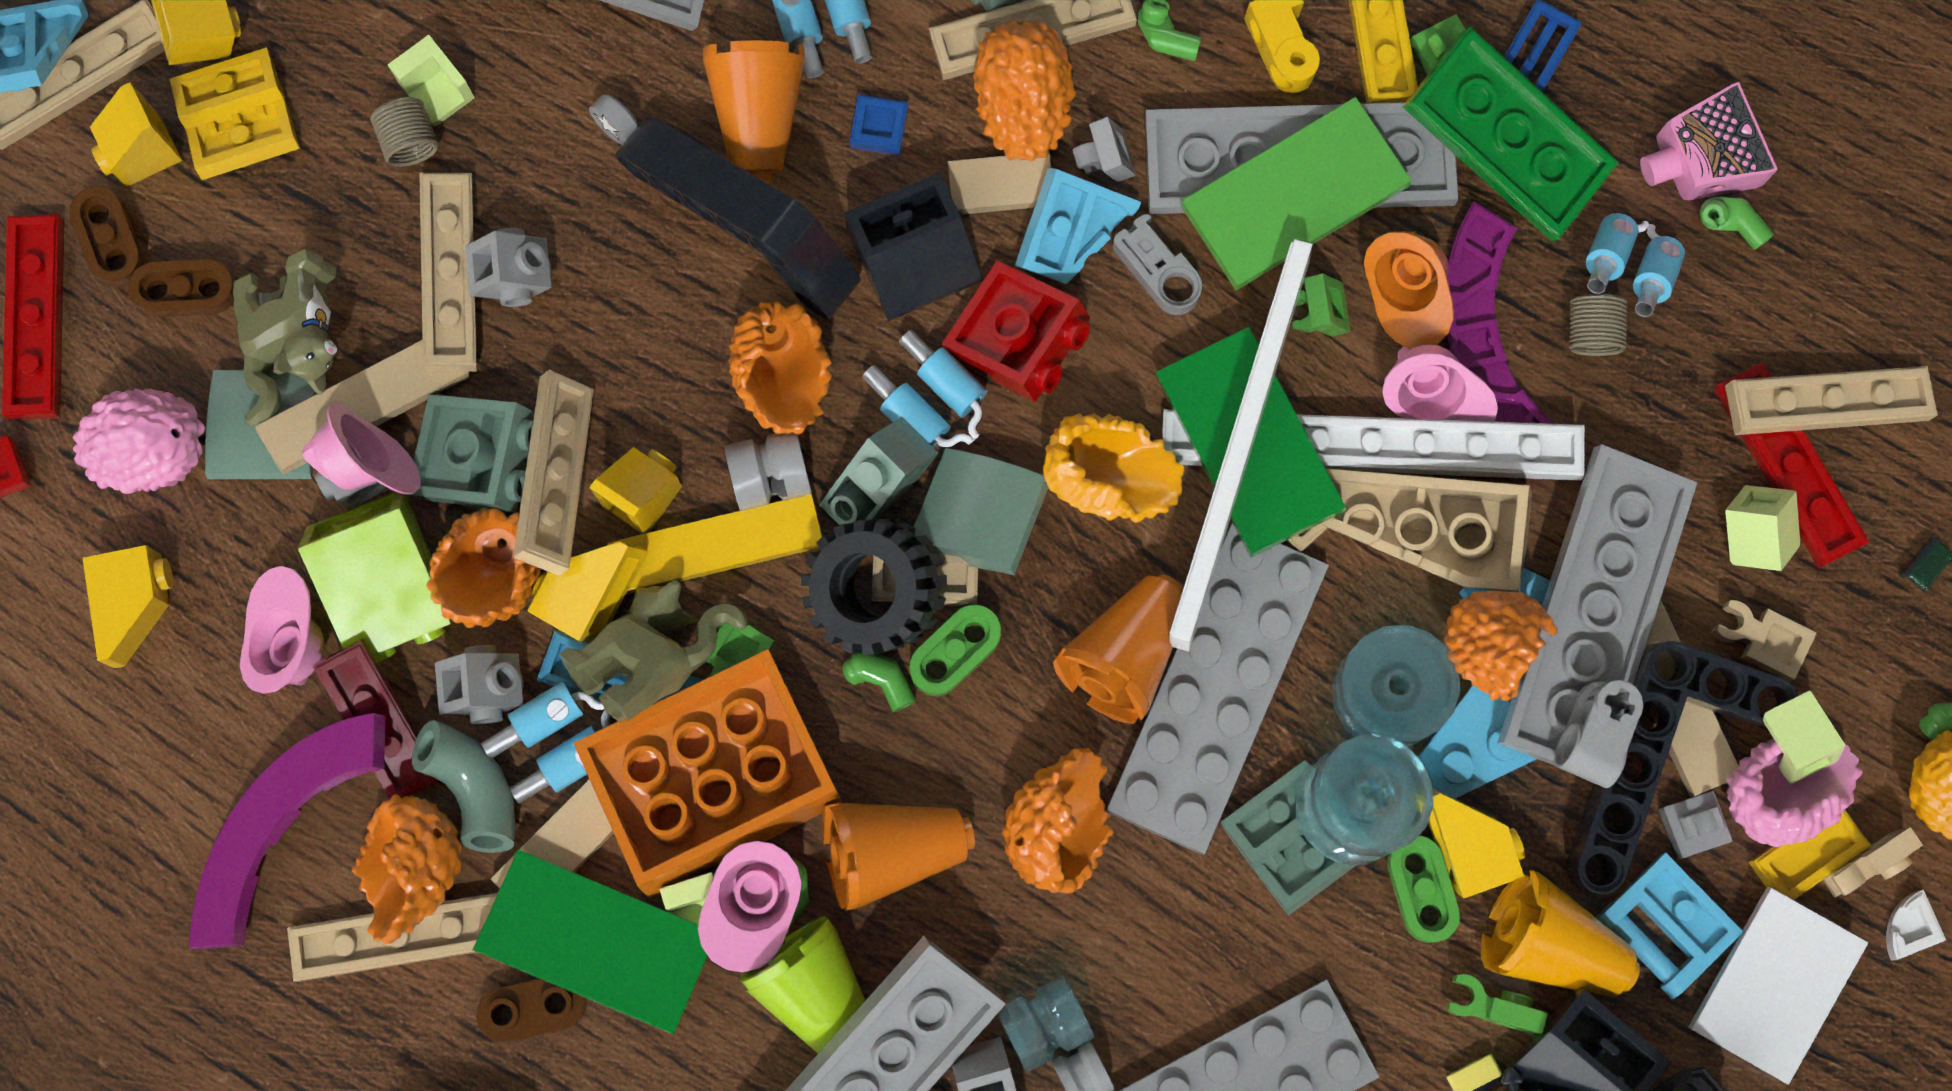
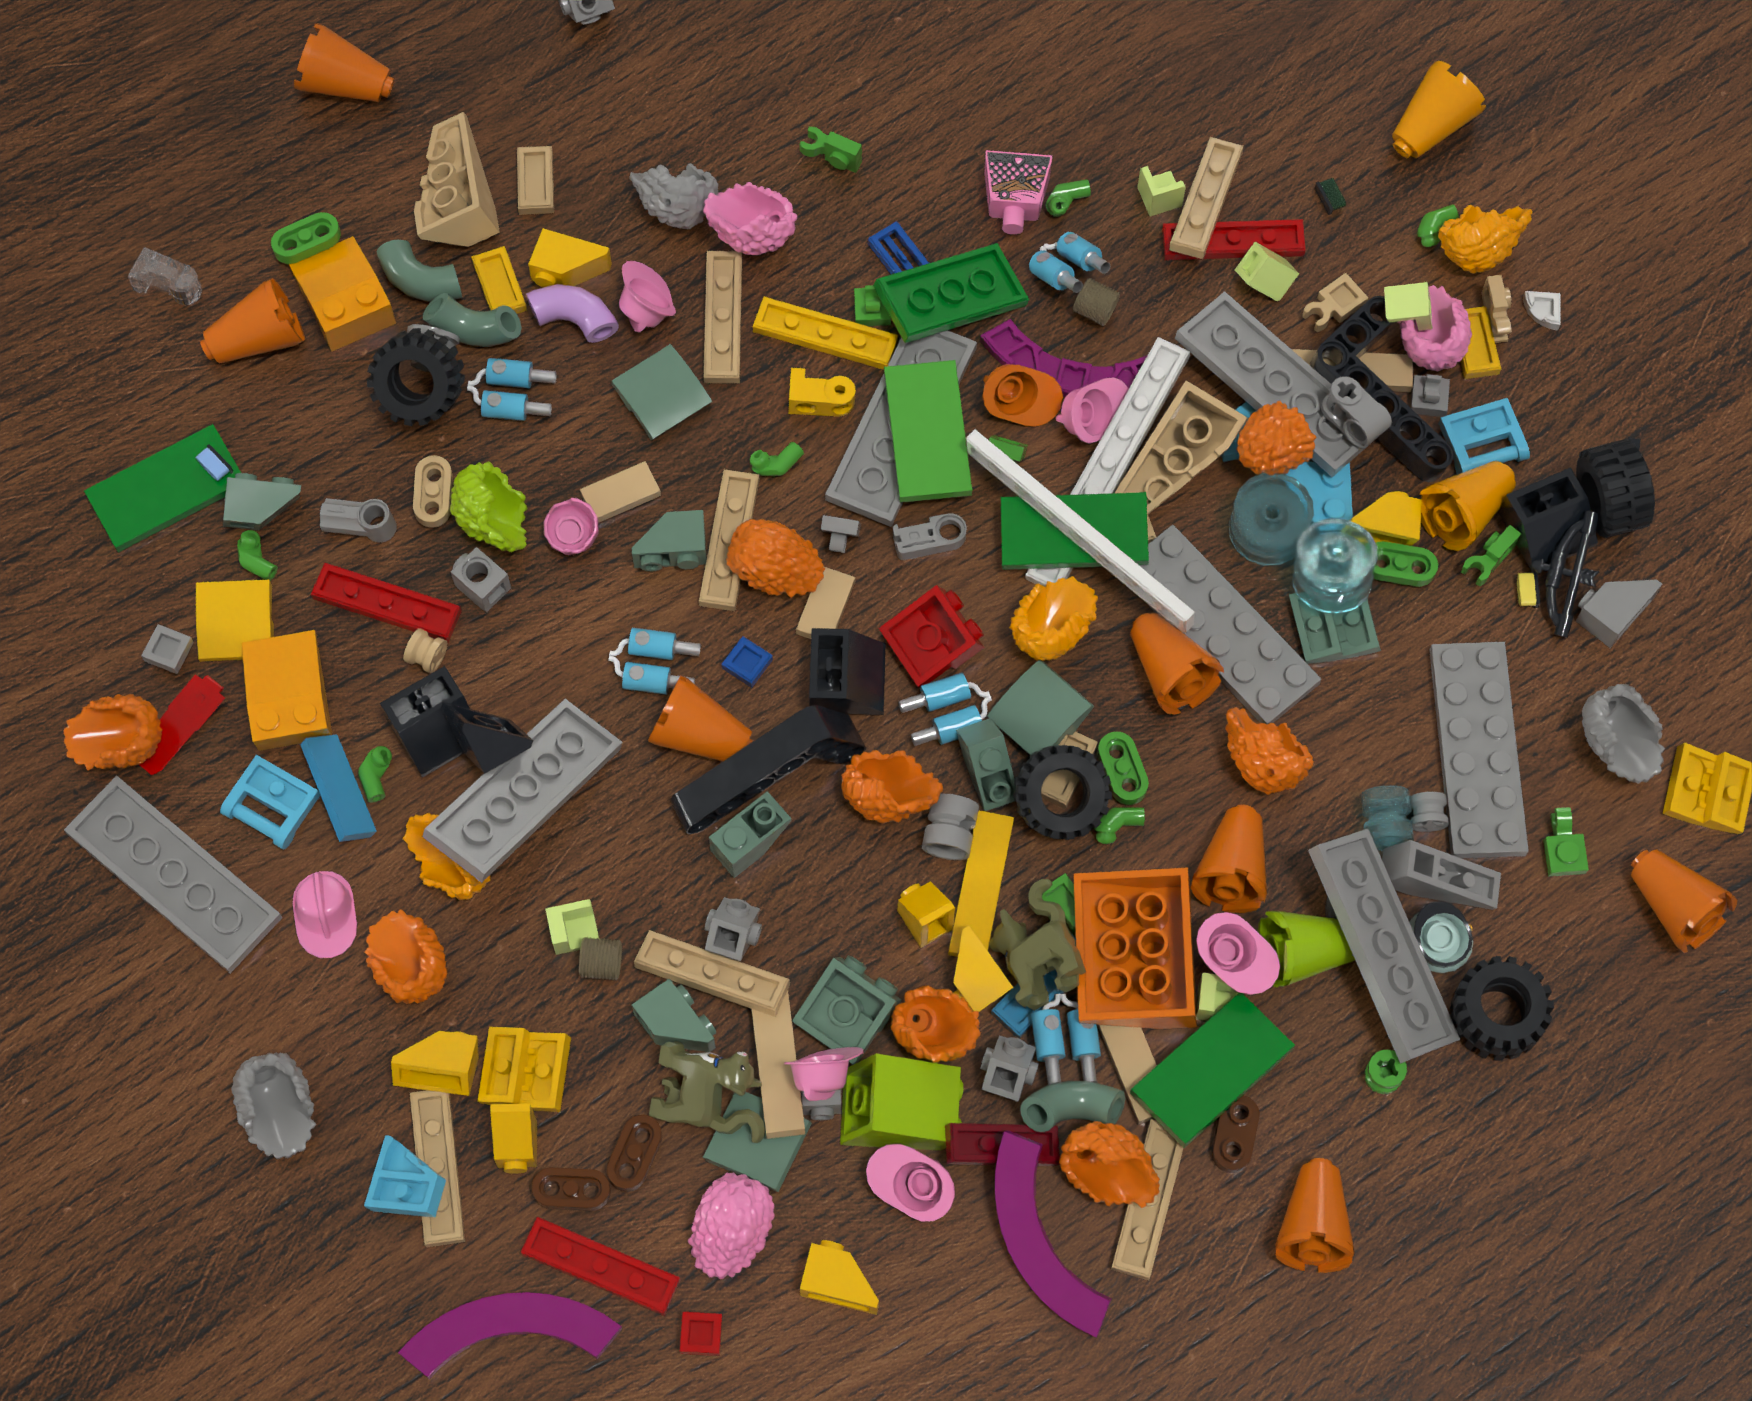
camera: 65 degrees left, 10 degrees down
(366, 252) = (668, 1017): none -> sand green slope
(553, 473) = (891, 955): tan tile -> none
(613, 118) = (660, 821): light grey tile -> none
(639, 228) = (749, 834): none -> sand green slope
(1070, 225) = (878, 574): medium azure wing -> none
(1778, 985) = (1547, 395): white tile -> none
(1808, 337) = (1160, 191): none -> yellowish green panel

